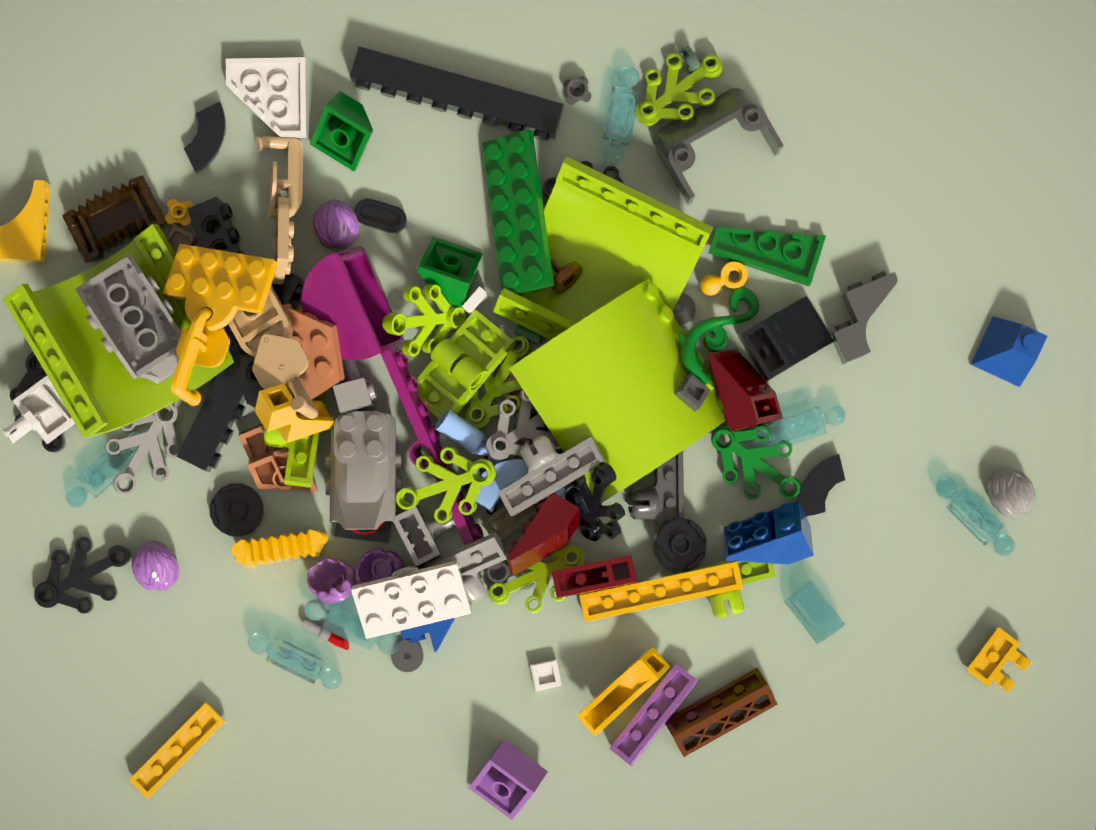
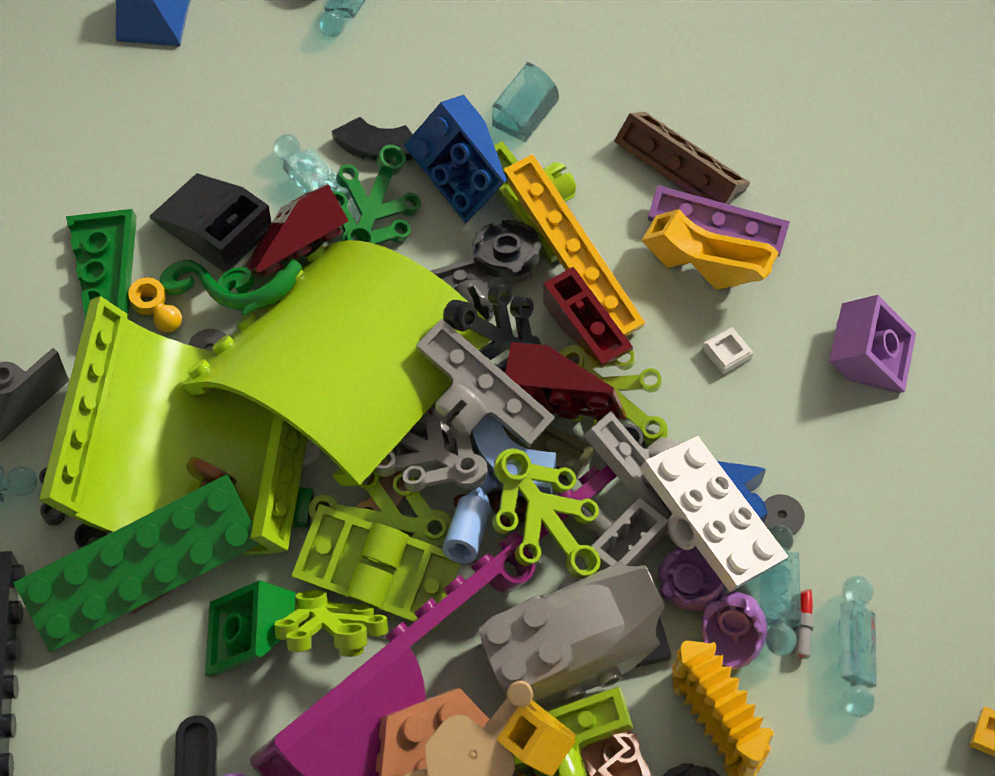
camera: 115 degrees left, 25 degrees down
(355, 392) = (474, 676): light grey brick -> none
(475, 301) = (280, 578): white tile -> none
(692, 392) = (313, 270): dark grey tile -> none
(861, 304) = (144, 155): dark grey arch -> none

